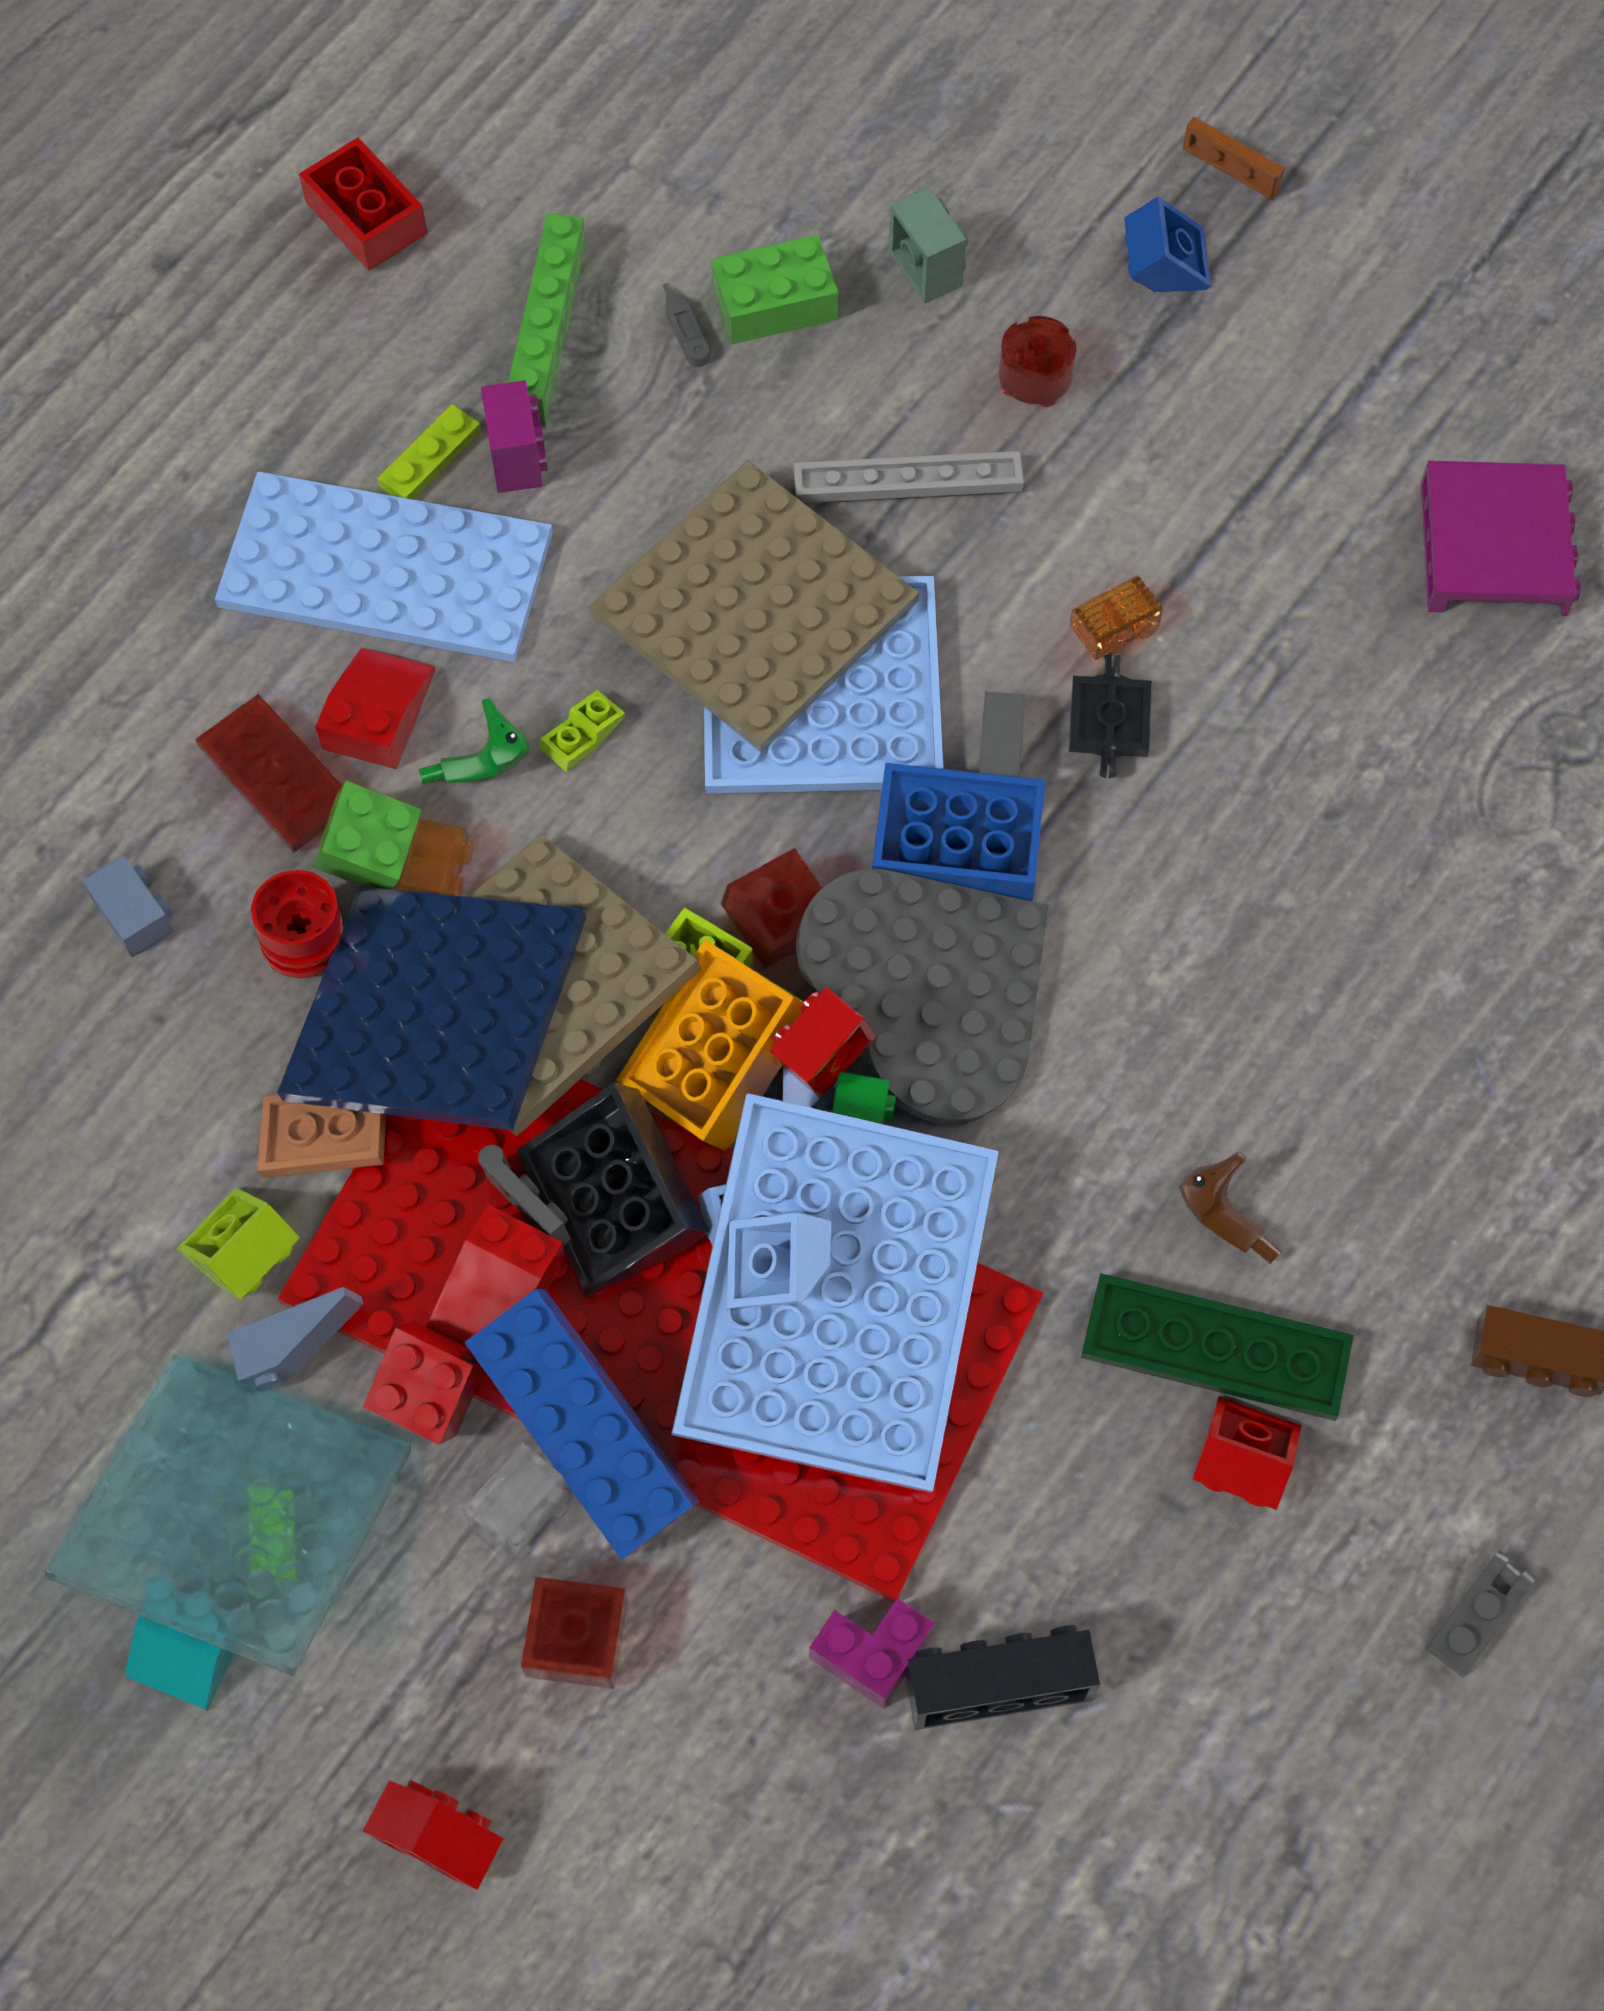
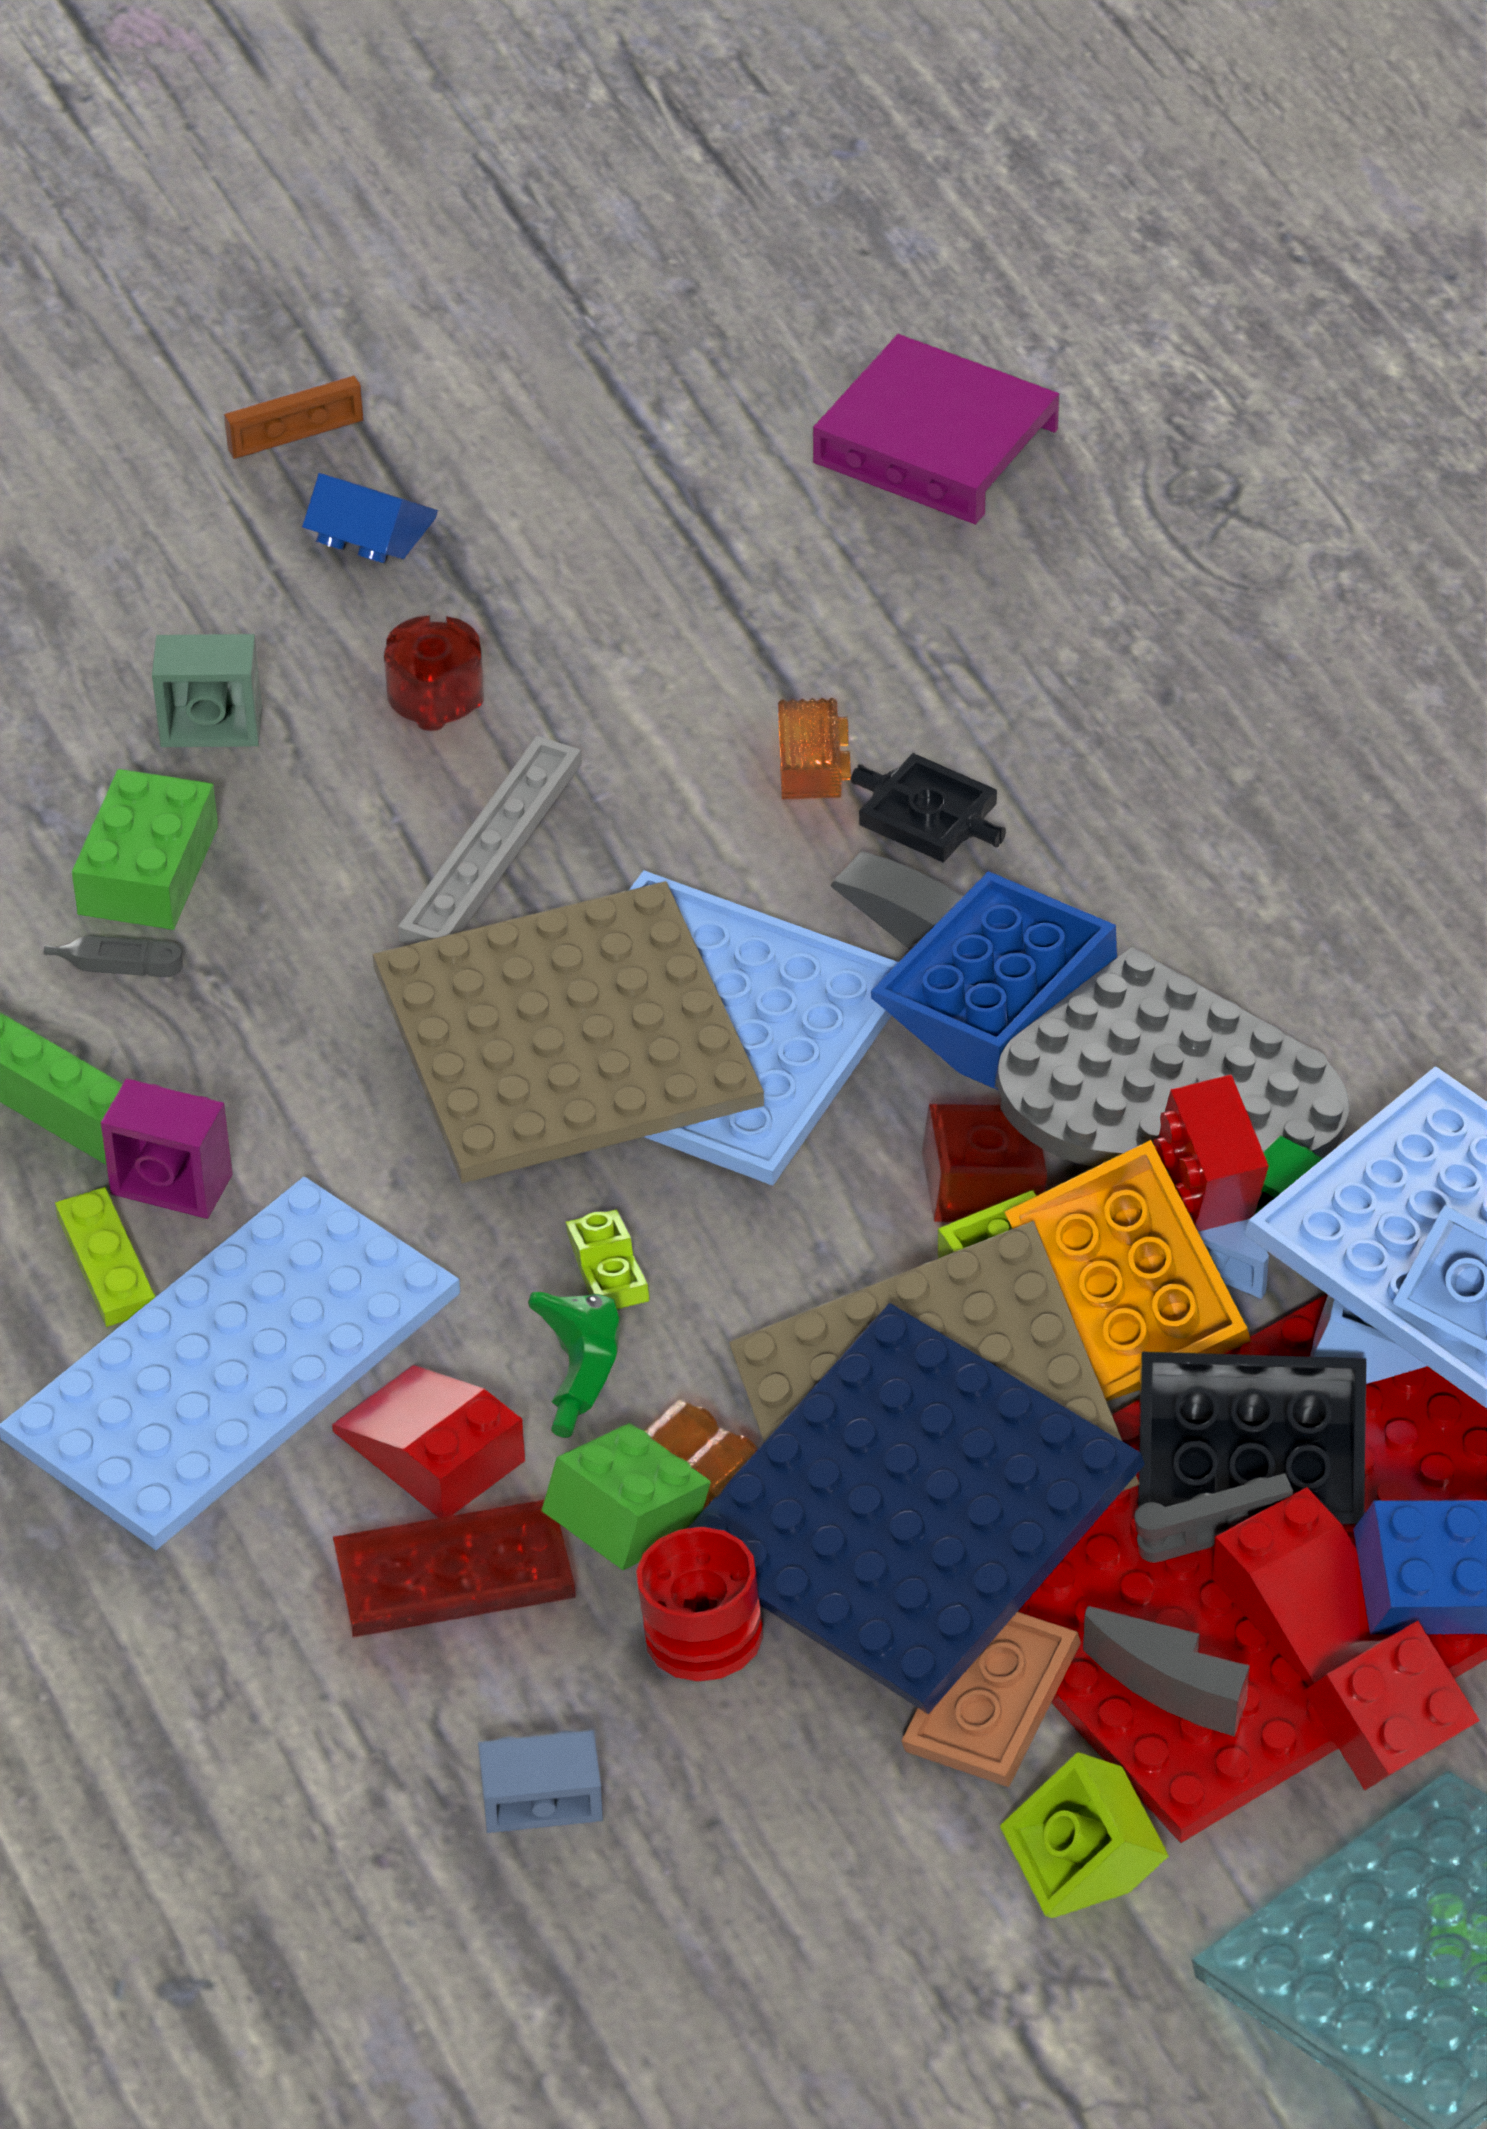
camera: 60 degrees left, 20 degrees down
(287, 1340) = (1253, 1836): sand blue slope -> none
(381, 1230) = (1167, 1669): none -> dark grey slope

